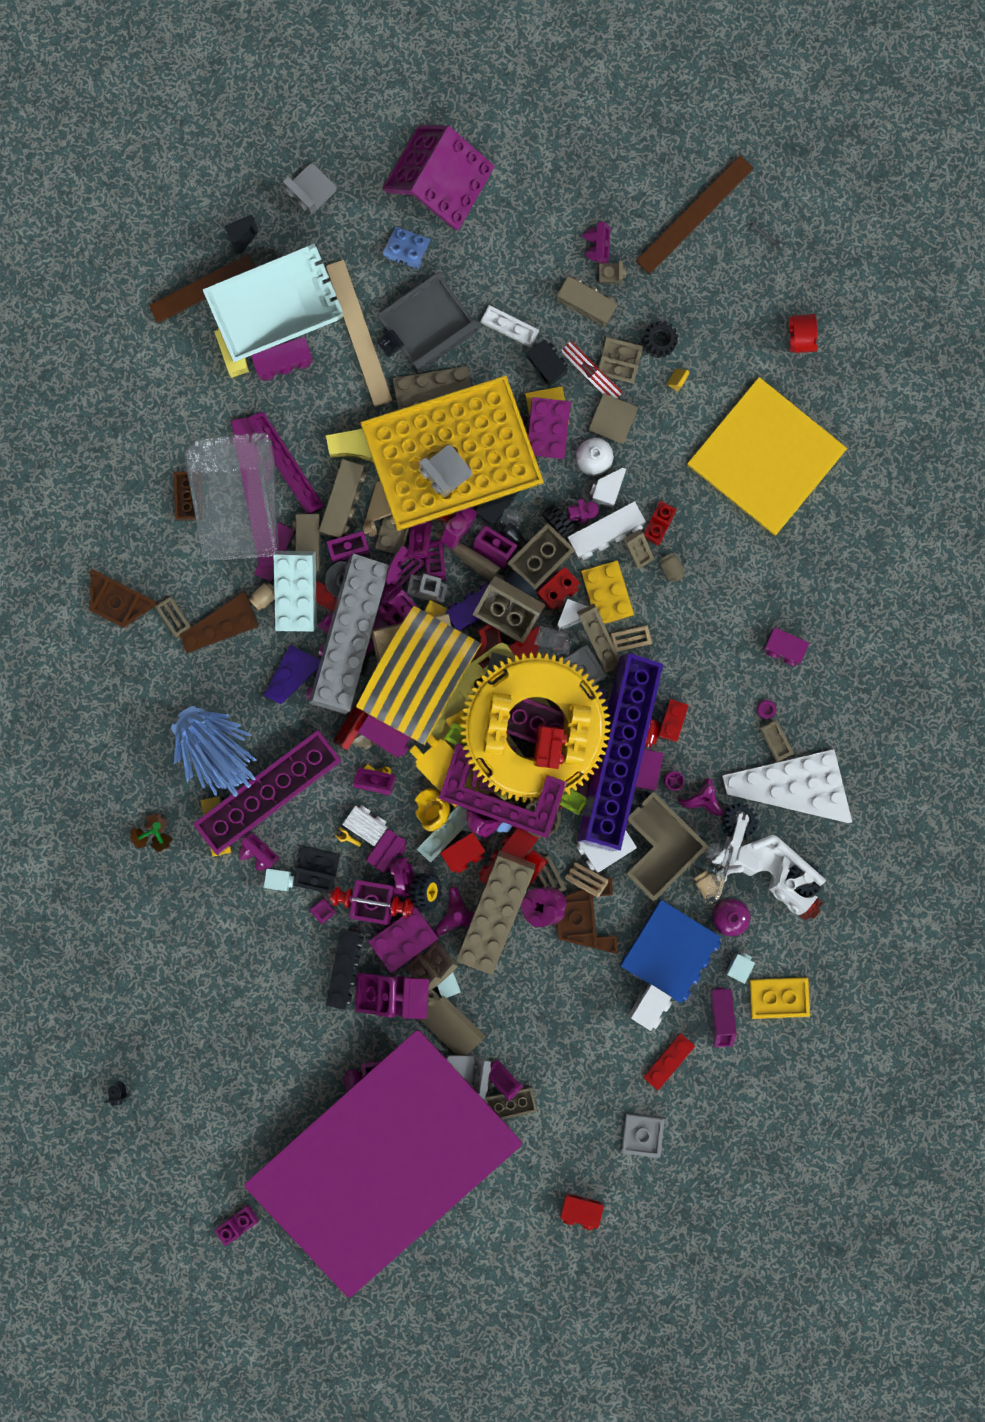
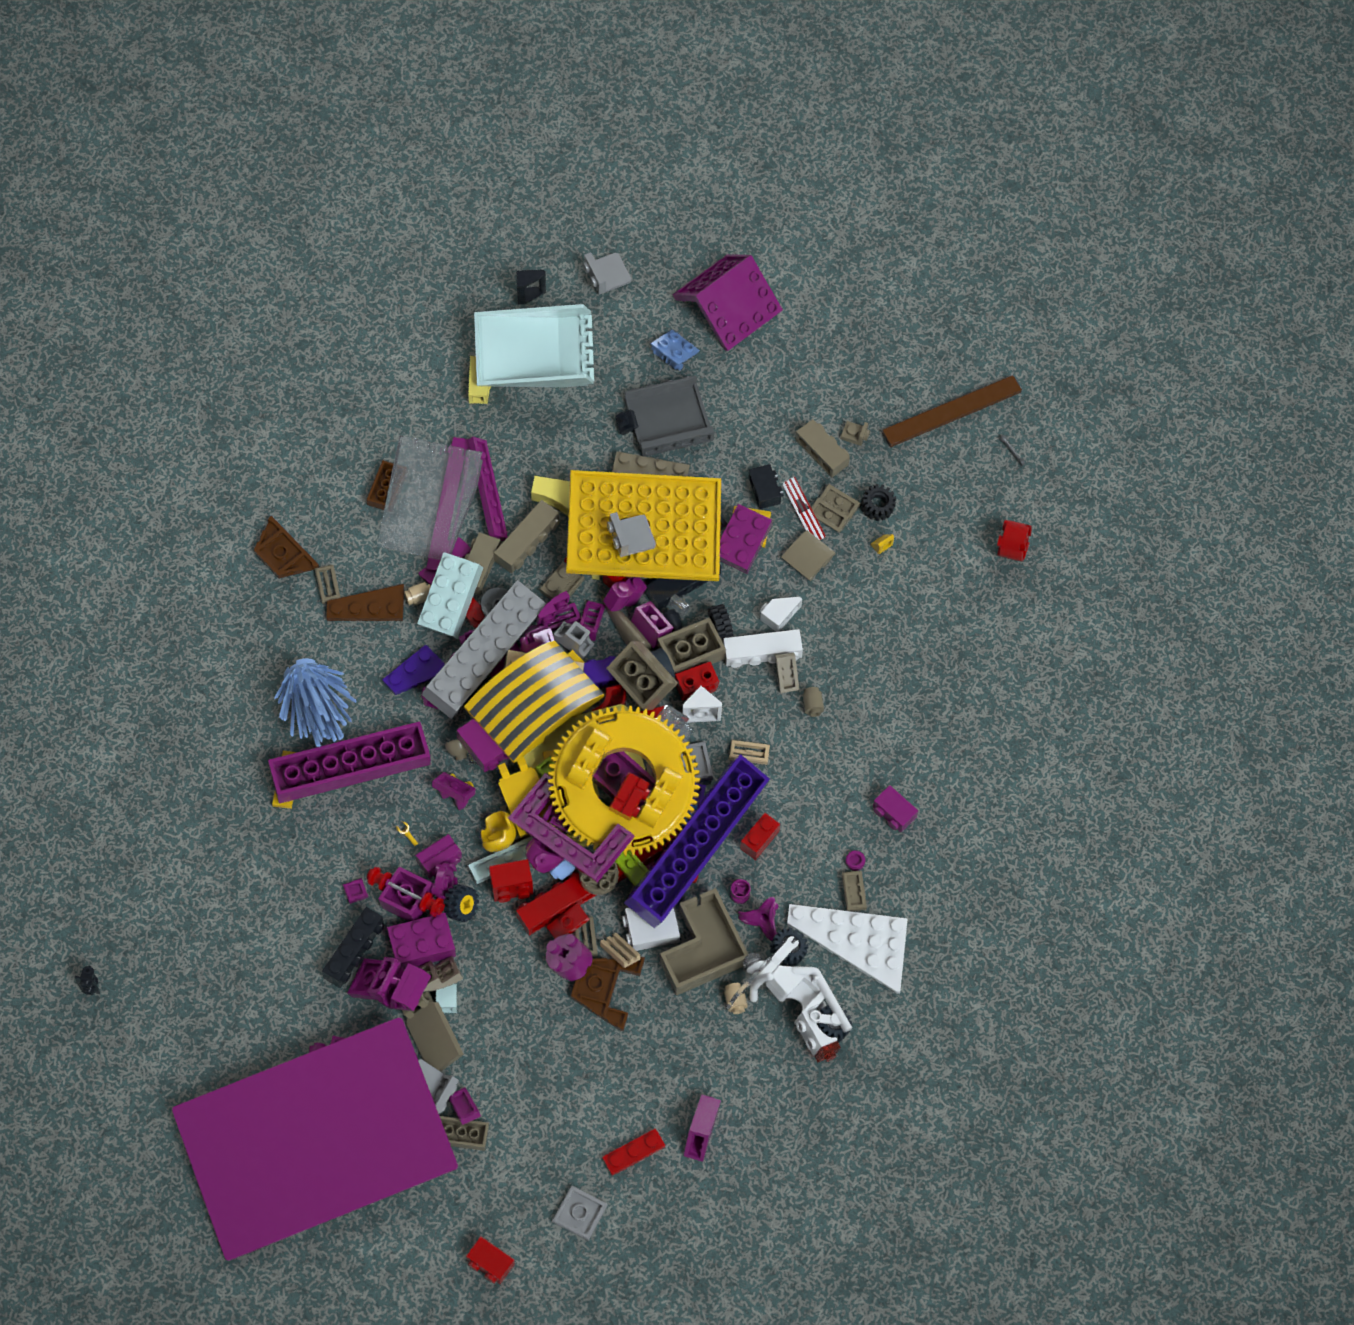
camera: 20 degrees right, 20 degrees down
(155, 825) = (230, 758): reddish brown plant -> none
(193, 293) = (459, 321): reddish brown tile -> none
(236, 1225) = (147, 1151): magenta slope -> none
(255, 847) = (315, 808): magenta tile -> none
(278, 880) = (325, 845): light aqua brick -> none
(282, 359) = (522, 401): magenta brick -> none
(317, 869) = (365, 851): black slope -> none
(344, 547) = (509, 573): magenta brick -> none
(350, 727) = (450, 733): red tile -> none
(359, 333) = (601, 405): tan tile -> none
(365, 825) = (427, 825): white brick -> none
(378, 509) = (557, 556): tan flag -> none
(420, 540) = (585, 594): magenta plate -> none
(456, 915) = (482, 941): magenta piece -> none
(495, 912) = (519, 943): dark tan brick -> none
(509, 326) = (742, 445): white tile -> none
(582, 511) = (743, 621): magenta hips -> none
(594, 456) = (777, 581): white cylinder -> none
(599, 637) = (718, 732): dark tan plate -> none
(600, 236) = (857, 401): magenta tile -> none
(608, 592) = (742, 704): yellow plate -> none
(649, 770) = (718, 871): magenta brick -> none
(650, 1007) = (633, 1084): white brick -> none
(653, 733) = (733, 840): red brick -> none
(659, 523) = (816, 660): red slope -> none
(671, 951) = (676, 1046): blue panel -> none
(731, 917) = (747, 1038): magenta cylinder -> none
(740, 967) = (738, 1086): light aqua brick -> none
(767, 456) = (941, 638): yellow tile -> none
(779, 998) = (766, 1131): yellow tile -> none

